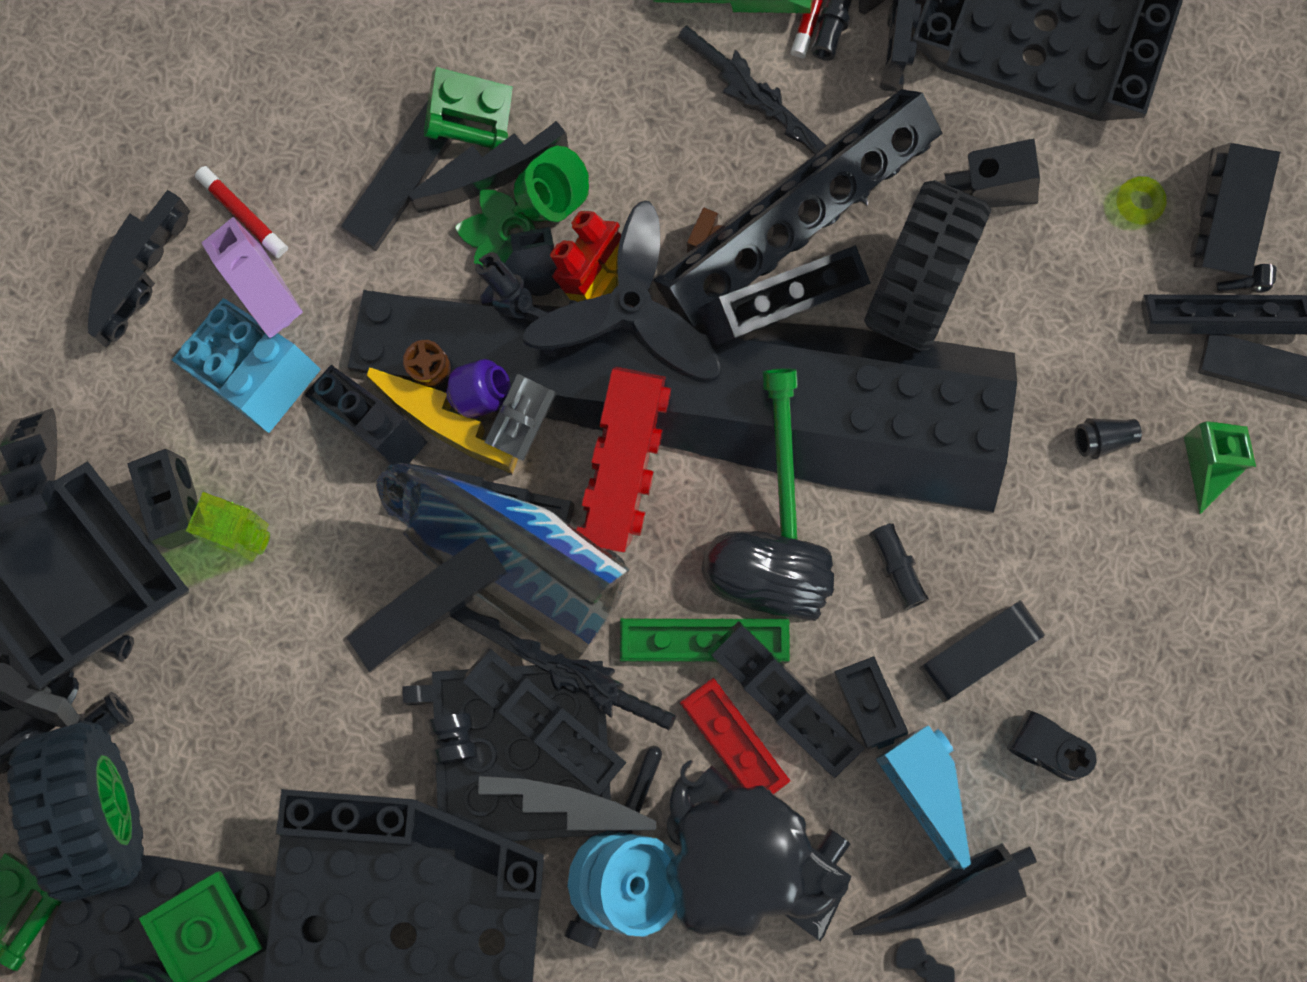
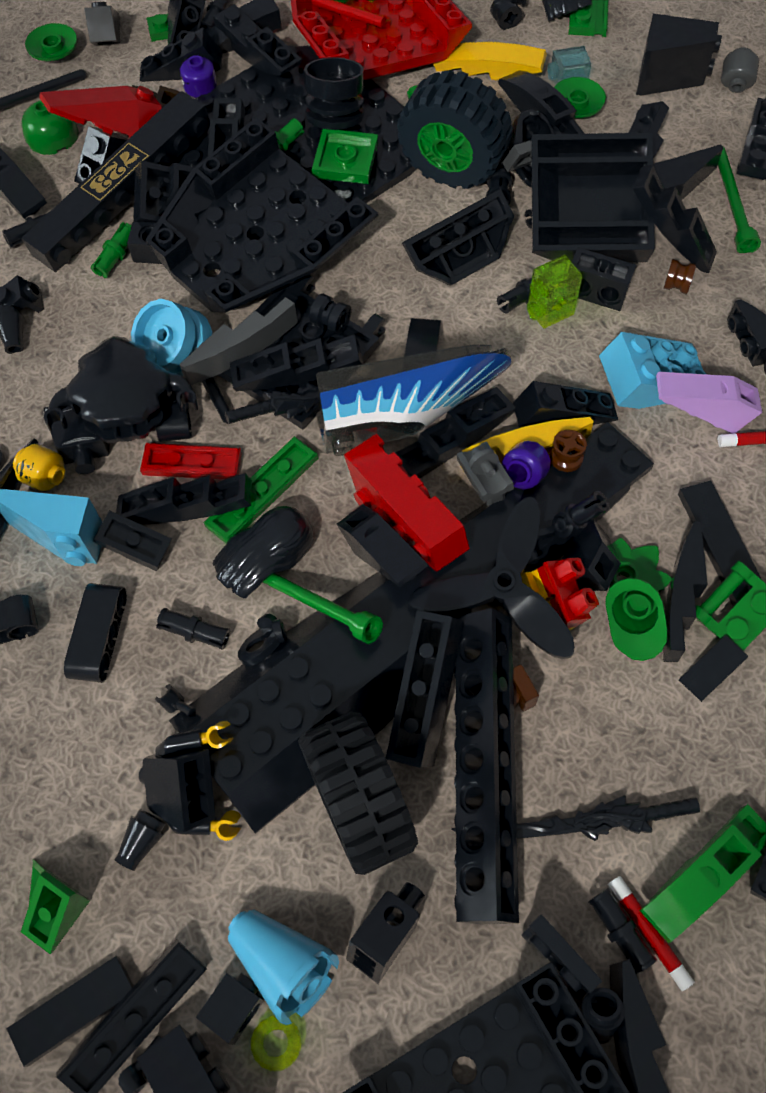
camera: 130 degrees right, 15 degrees down
(90, 426) = (679, 276): none -> reddish brown wheel
(222, 696) = (462, 241): none -> black wedge
(237, 574) = (515, 296): none -> black pin
(542, 99) = (713, 668): none -> black sticker
(682, 446) = (381, 546): none -> black slope
(838, 502) = (269, 628): none -> black piece
(881, 881) = (39, 467): none -> yellow head
(976, 518) = (175, 701): none -> black hand
(1039, 429) = (181, 784): none -> black torso
(1091, 237) = (282, 963): none -> medium azure cone
(1152, 247) = (231, 1007): none -> black brick

